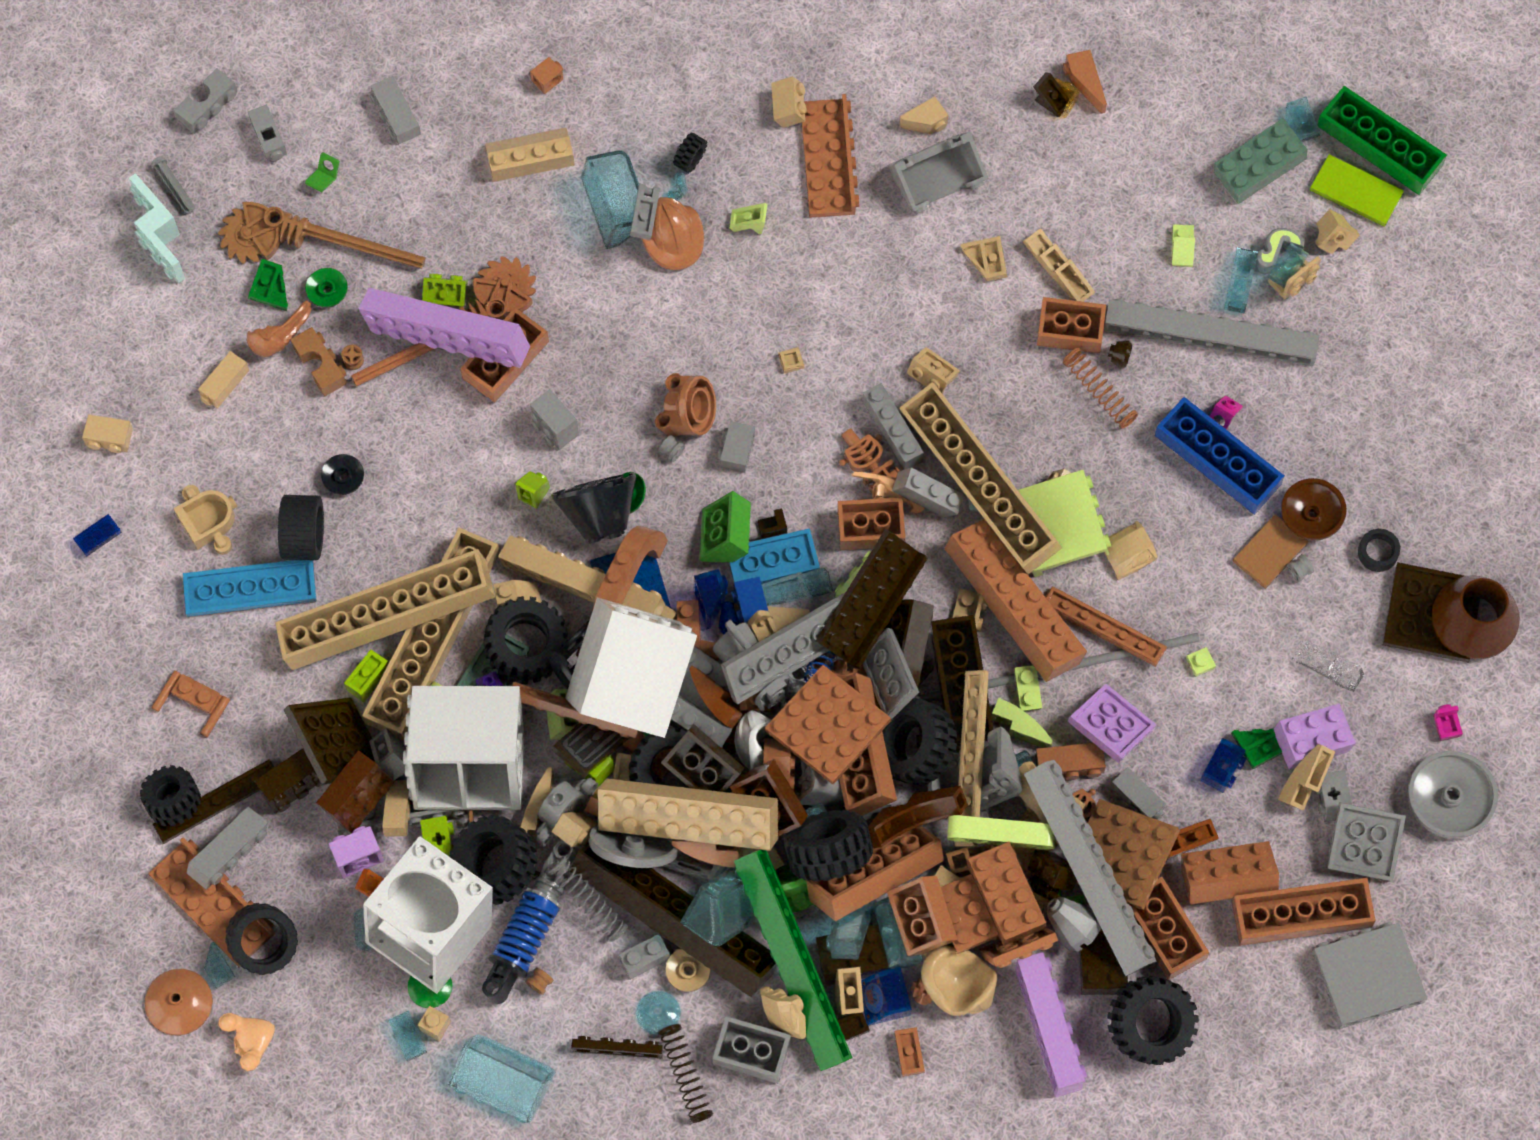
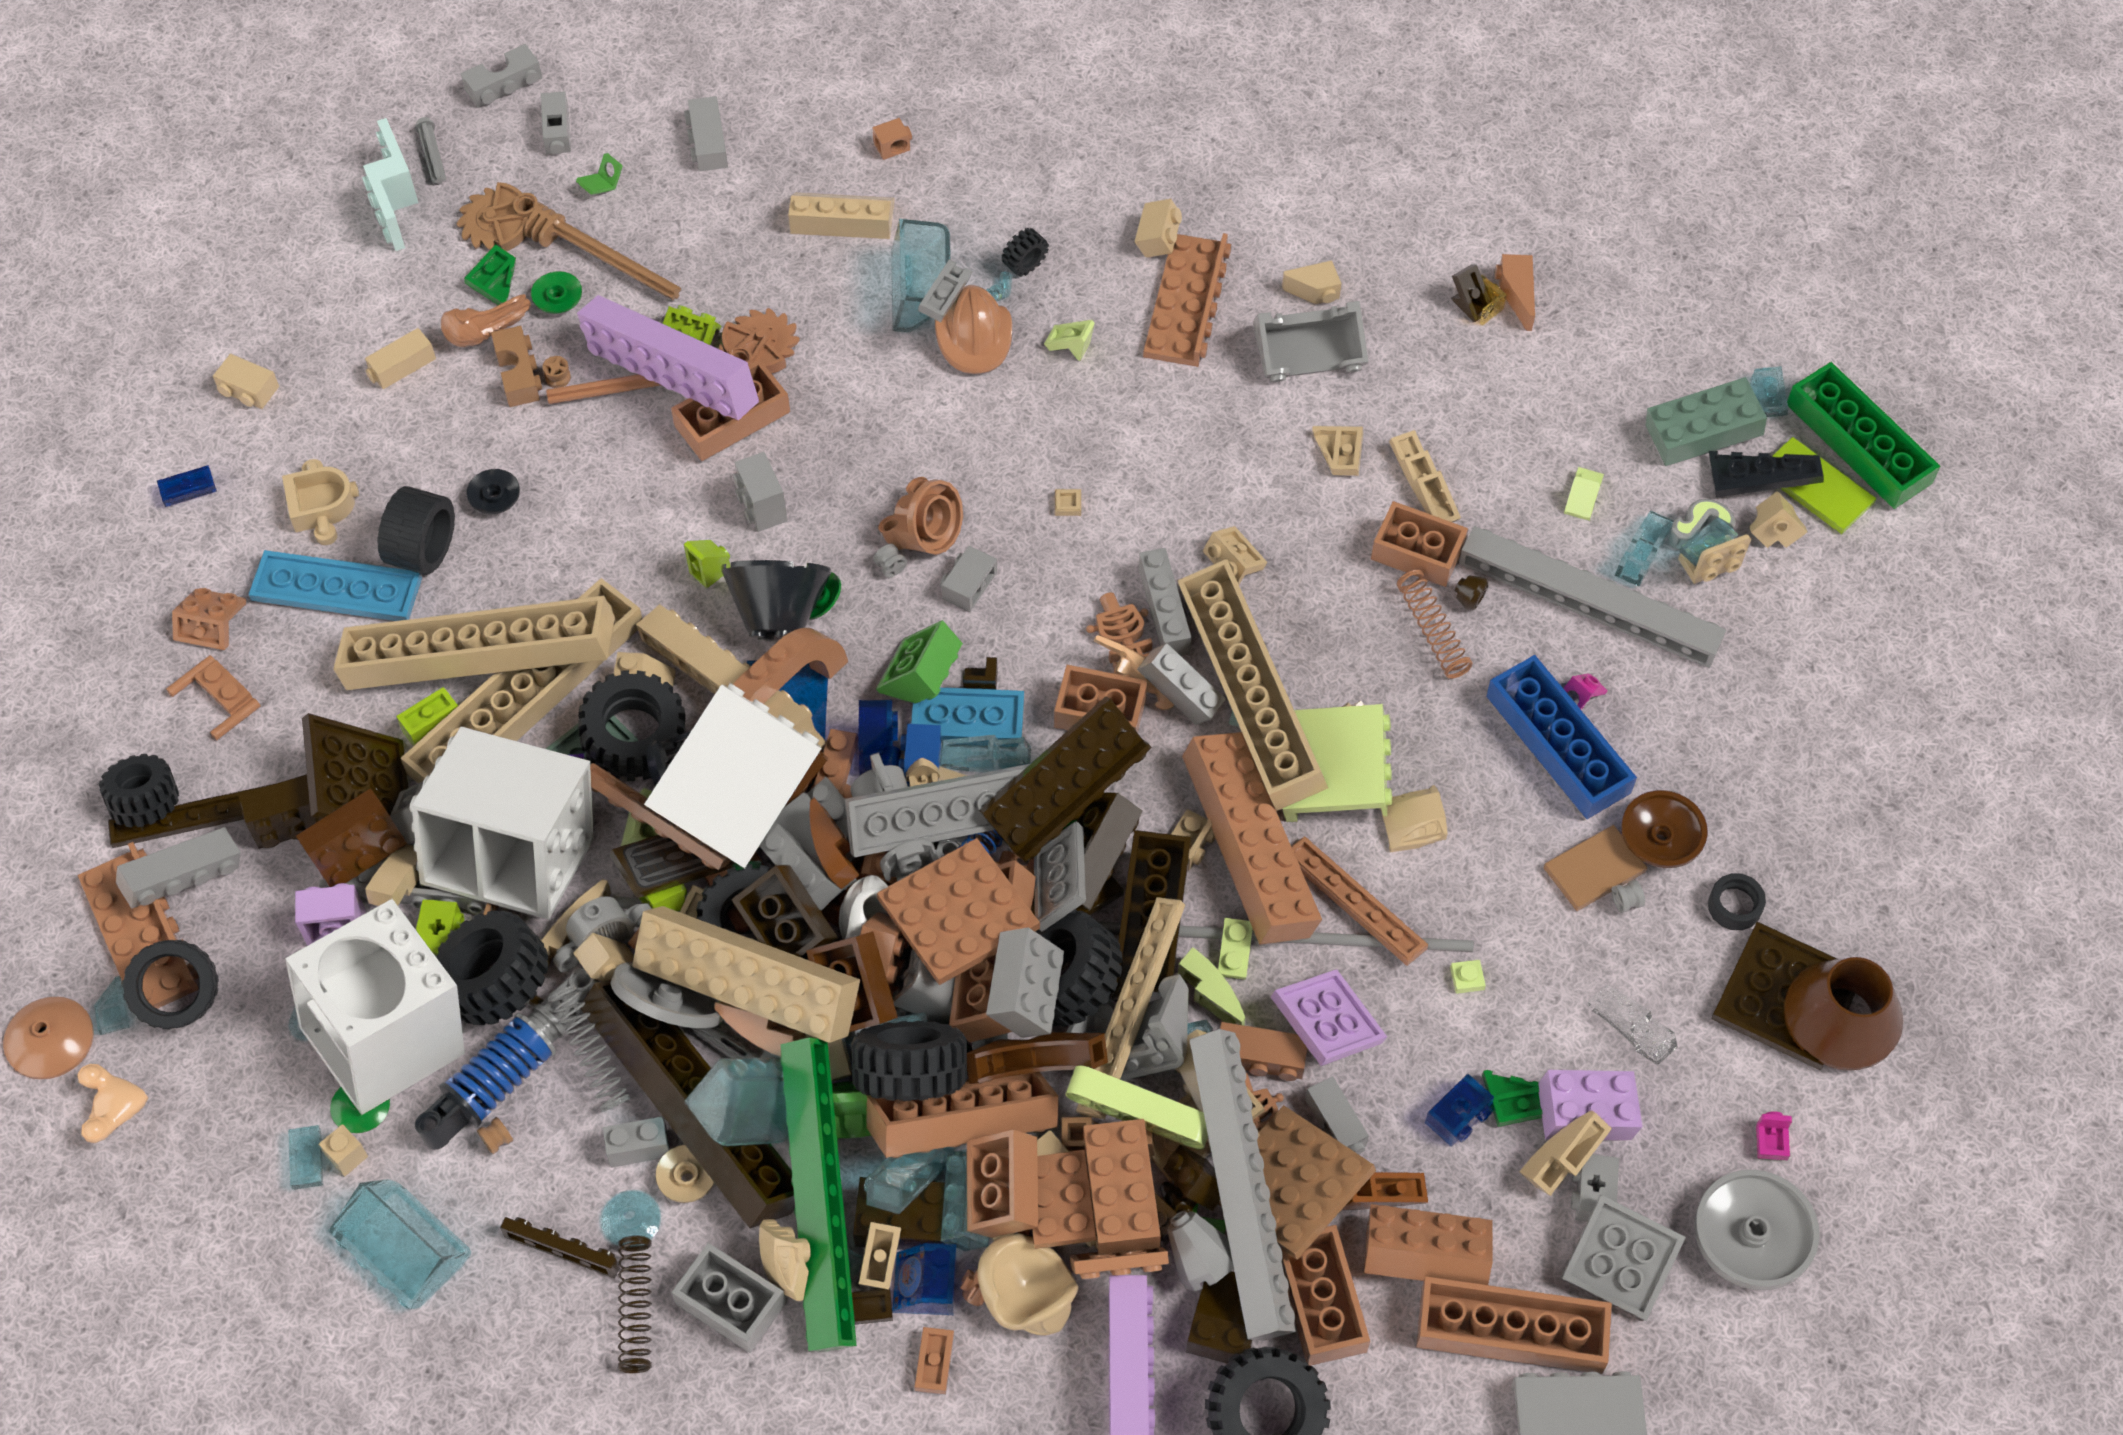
camera: 15 degrees right, 10 degrees down
(160, 640) = (205, 618): none -> nougat bracket
(894, 765) = (1025, 982): none -> light grey brick
(1307, 195) = (1748, 474): none -> black wing

